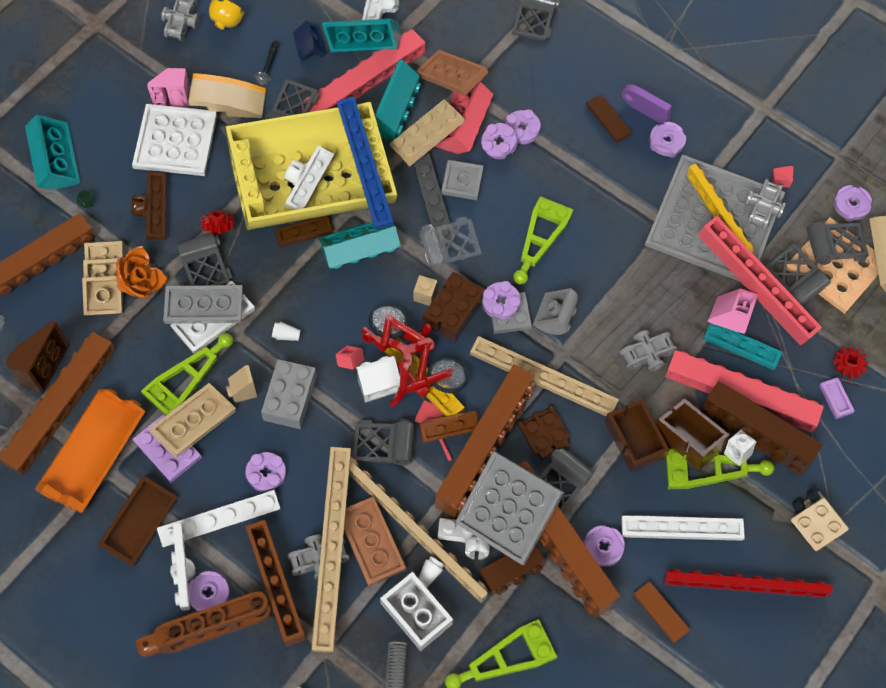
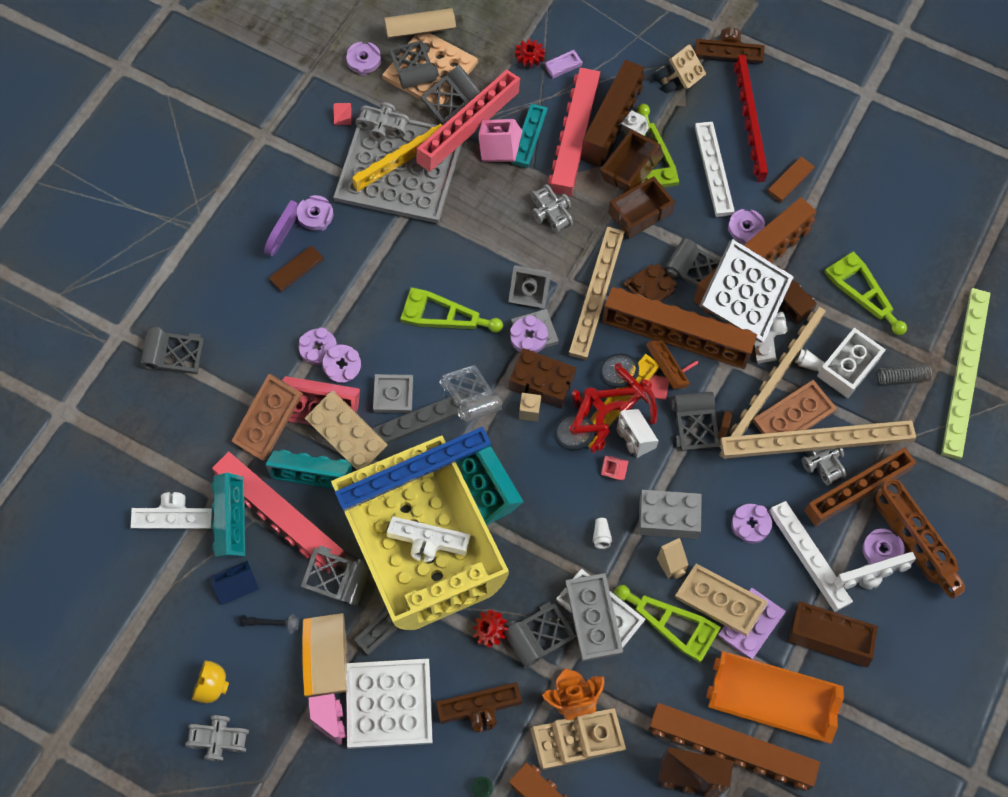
camera: 100 degrees left, 0 degrees up
(375, 467) = (725, 424): none -> reddish brown tile
(847, 583) = (729, 48): none -> reddish brown plate

